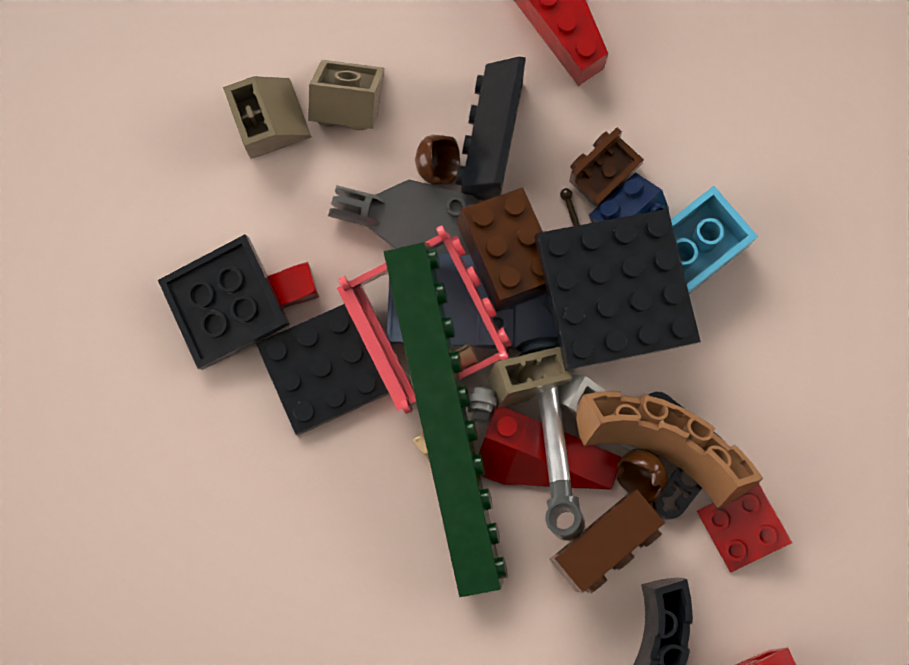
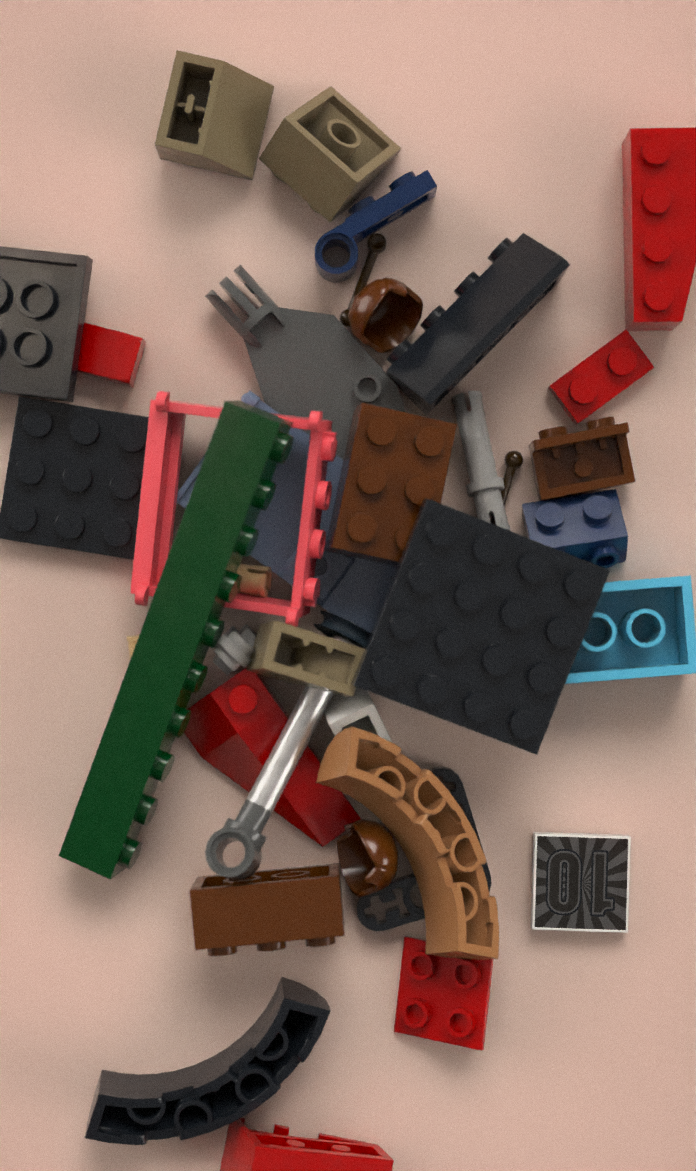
camera: 30 degrees right, 10 degrees up
(392, 114) = (371, 216): none -> dark blue plate
(406, 128) = (376, 245): none -> dark brown hinge
(559, 215) = (480, 463): none -> light grey pin
(583, 118) = (601, 377): none -> red plate
(775, 408) = (580, 882): none -> tile

